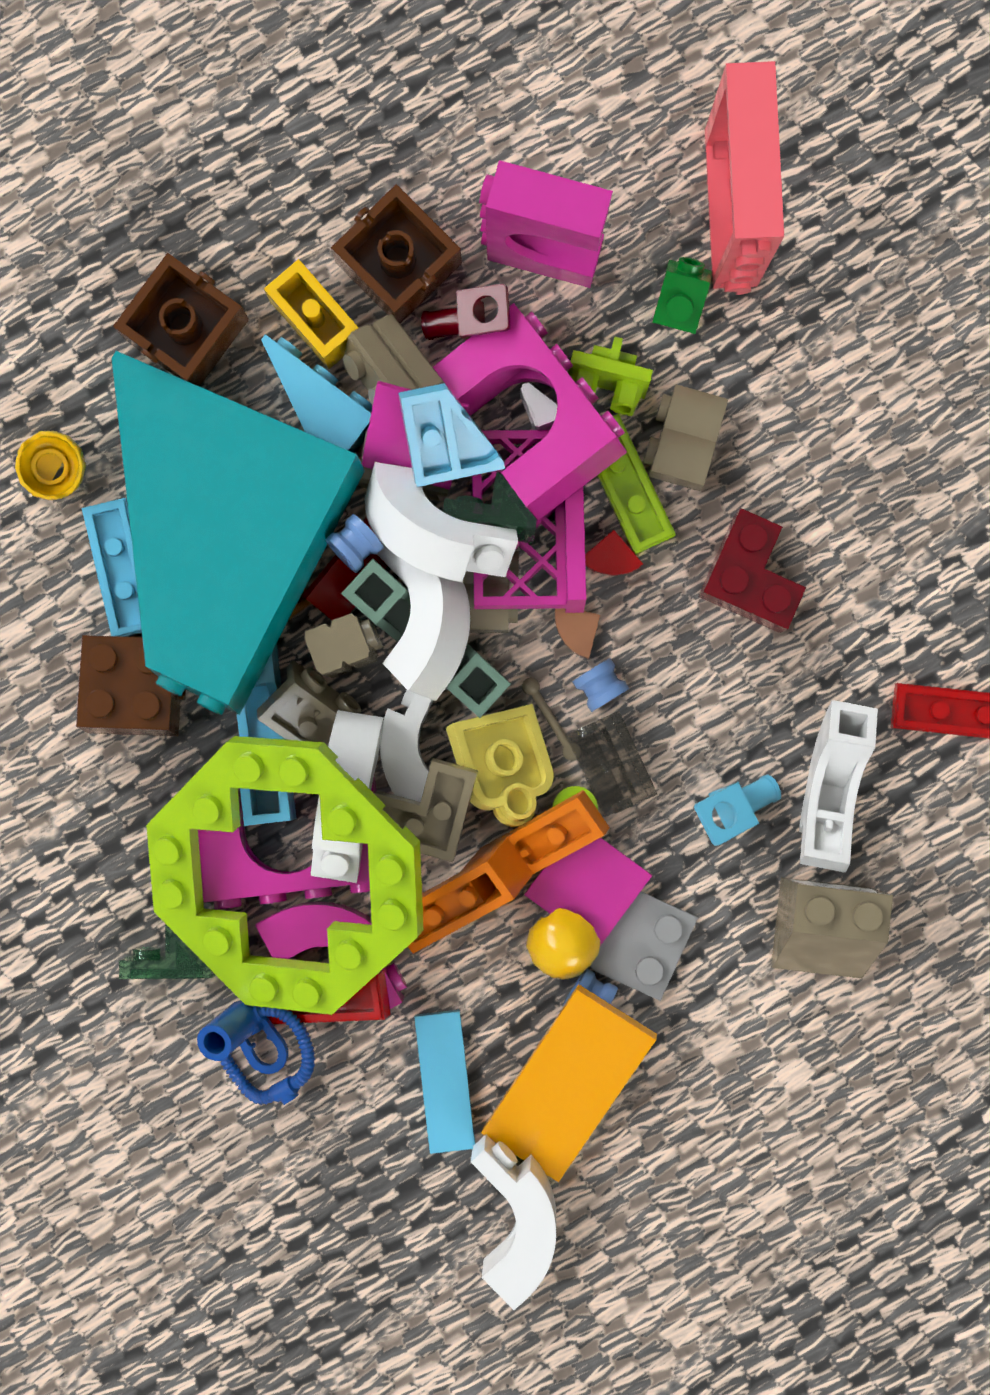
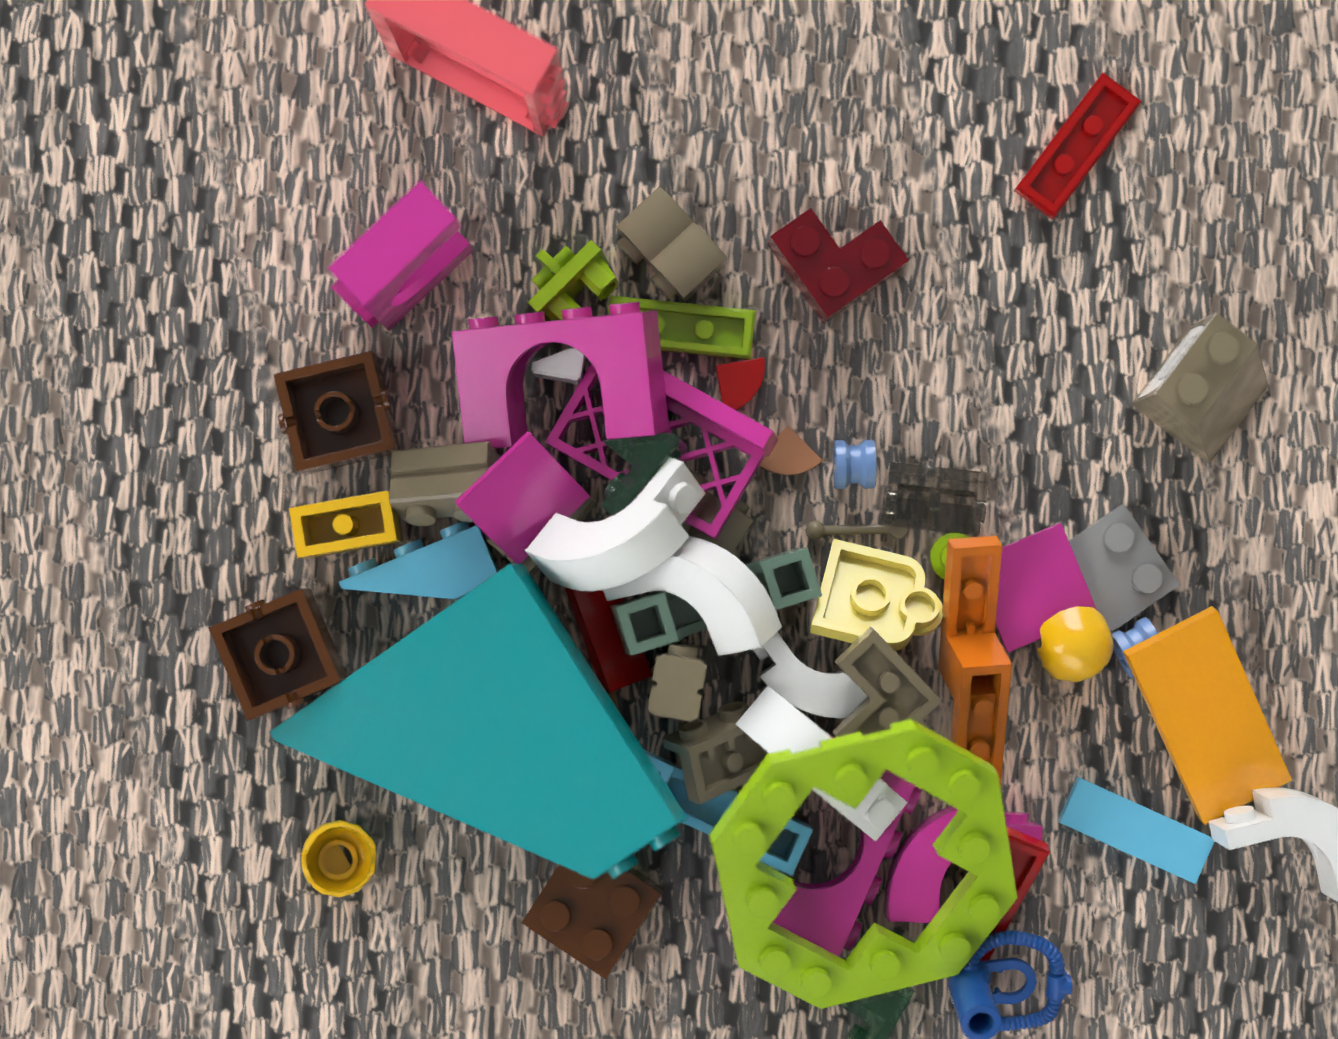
camera: 70 degrees left, 0 degrees up
(114, 562) = (469, 851): medium azure tile -> none
(354, 543) = (590, 615): medium blue wheel -> none
(444, 437) = (545, 472): medium azure wing -> none
(469, 315) = (435, 380): bracket -> none
(683, 294) = (534, 168): green bracket -> none
(736, 807) = (1044, 407): medium azure bracket -> none
(833, 782) = (1064, 295): white arch -> none

